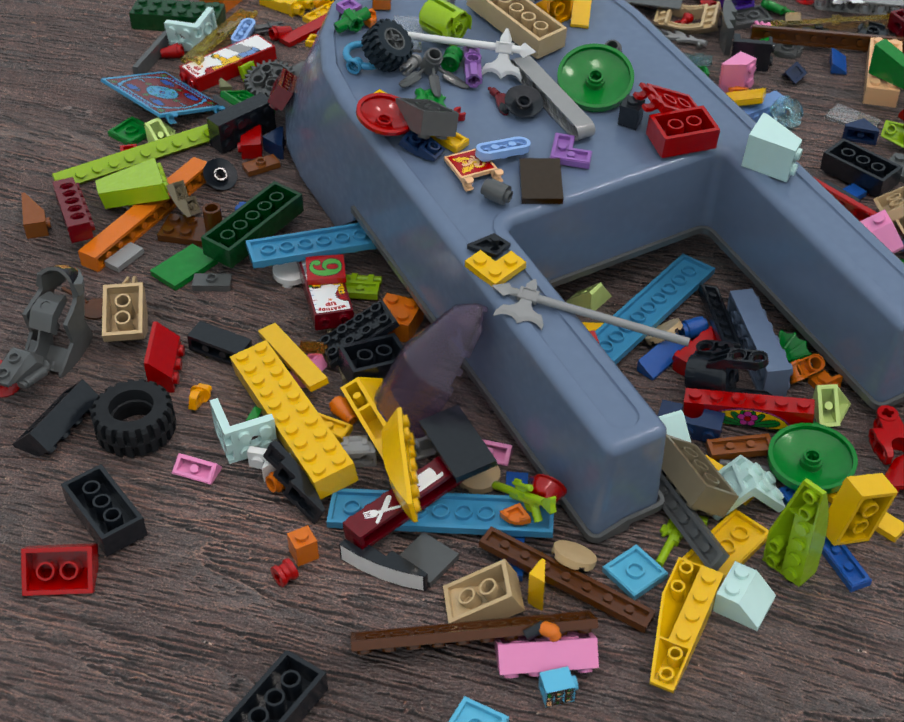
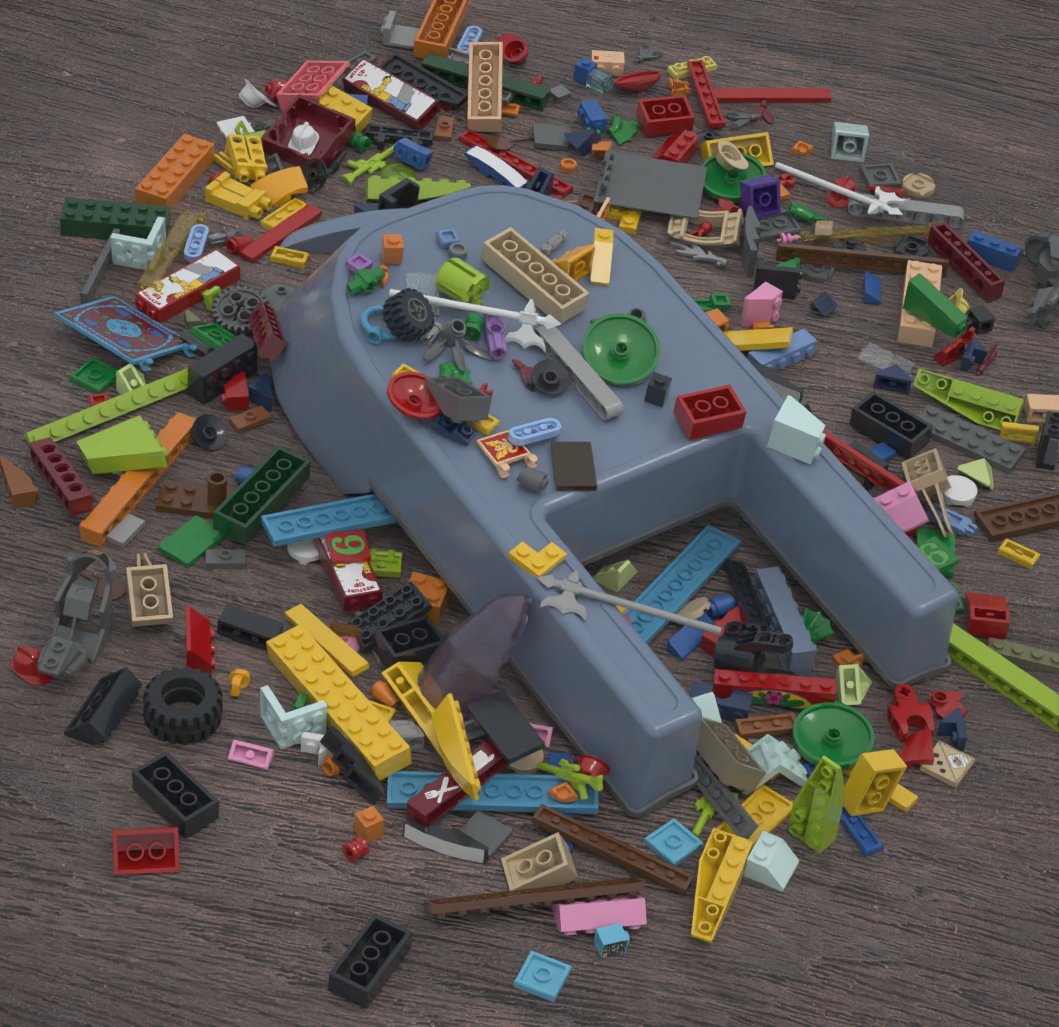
camera: 10 degrees left, 0 degrees up
(173, 51) = (119, 269): red cone -> none
(187, 205) = (182, 468): dark tan slope -> none
(491, 245) = (531, 535): black piece -> none
(536, 585) = (588, 855): yellow slope -> none
(545, 629) = (600, 891): arm -> none
(570, 156) = (599, 438): medium lavender tile -> none
(574, 555) = (618, 828): tan tile -> none
(663, 98) = (692, 377): red tile -> none
(700, 59) = (718, 286): clear light blue plate -> none
(793, 106) = (806, 359): clear light blue plate -> none
(802, 367) = (826, 646): orange piece -> none

